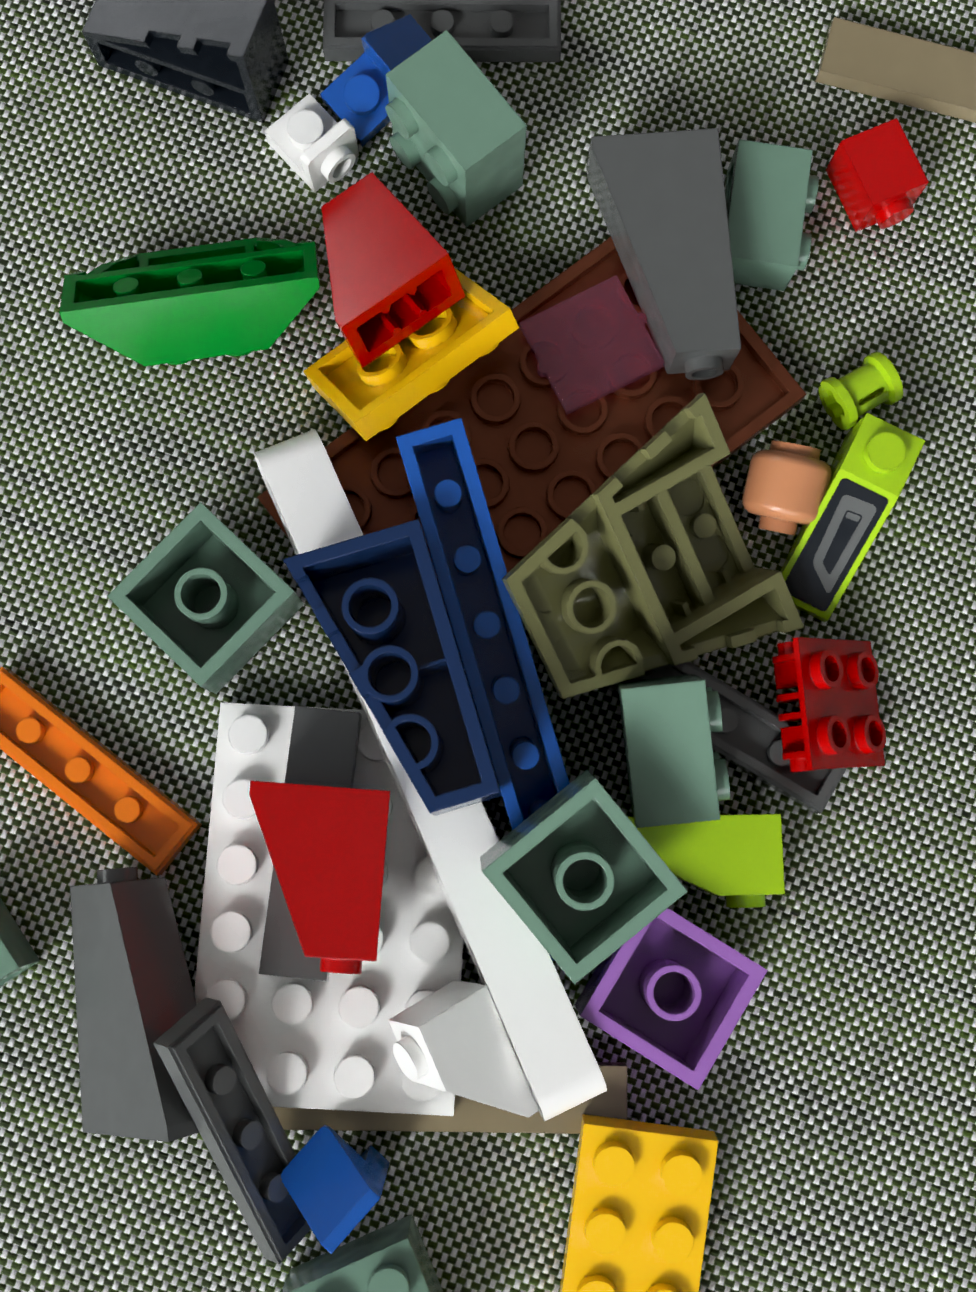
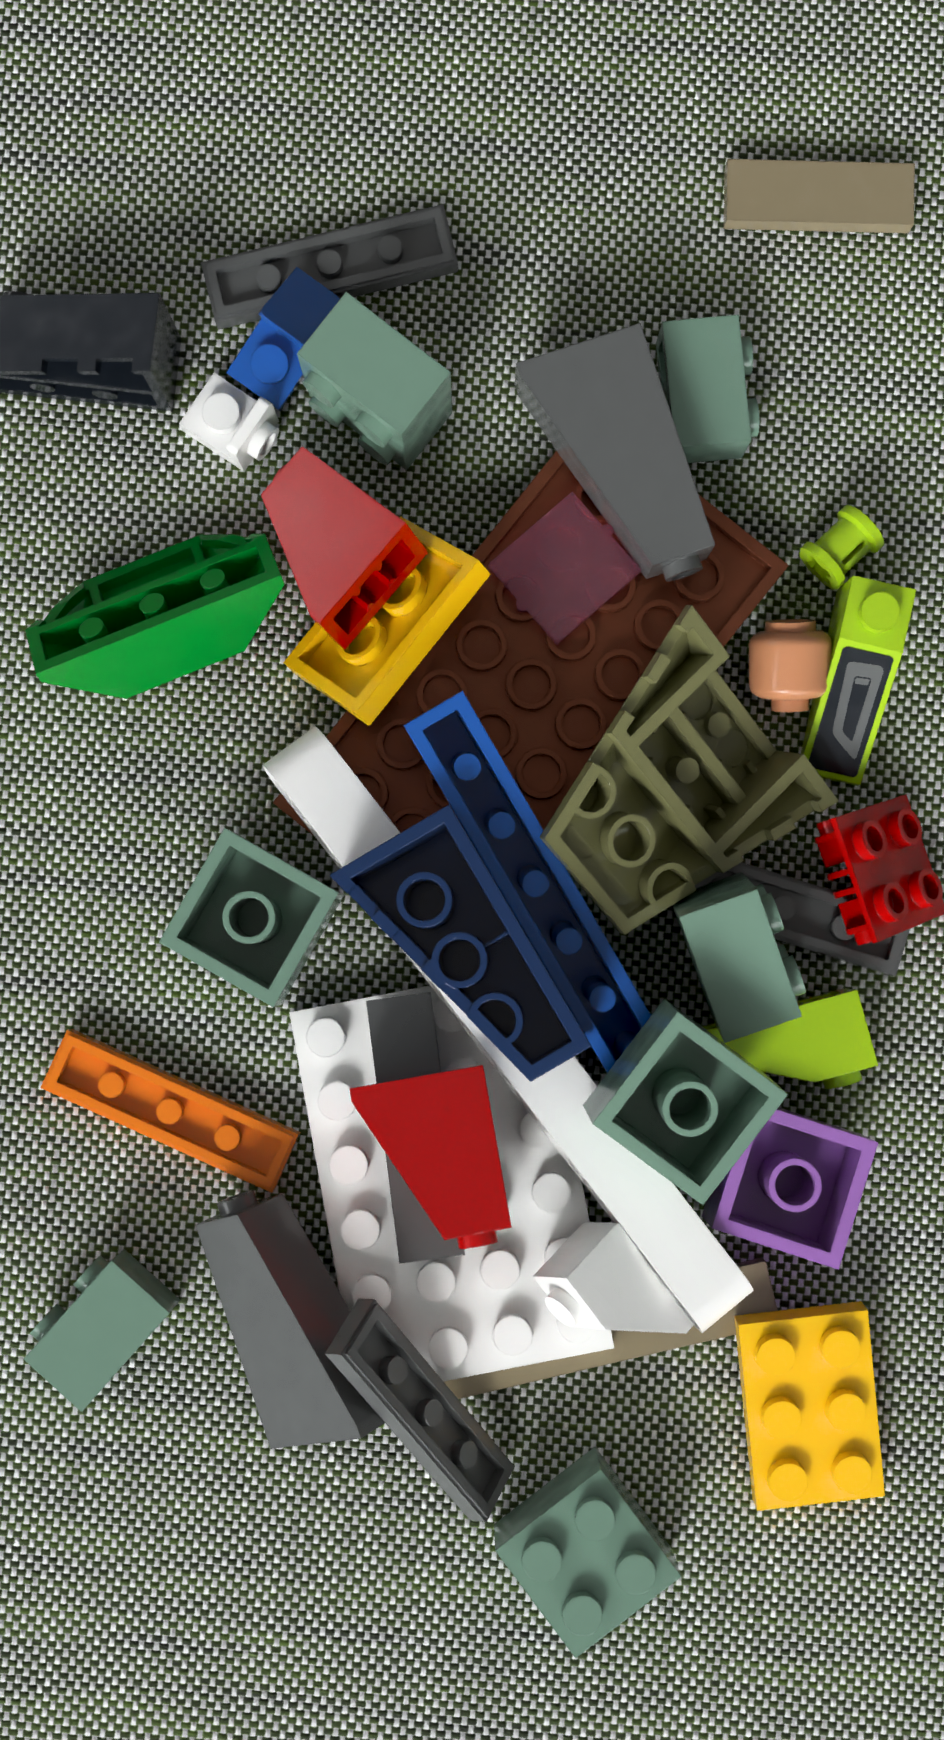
camera: 10 degrees left, 5 degrees up
(334, 1185) = (521, 1438): blue slope -> none
(877, 176) = (809, 321): red brick -> none

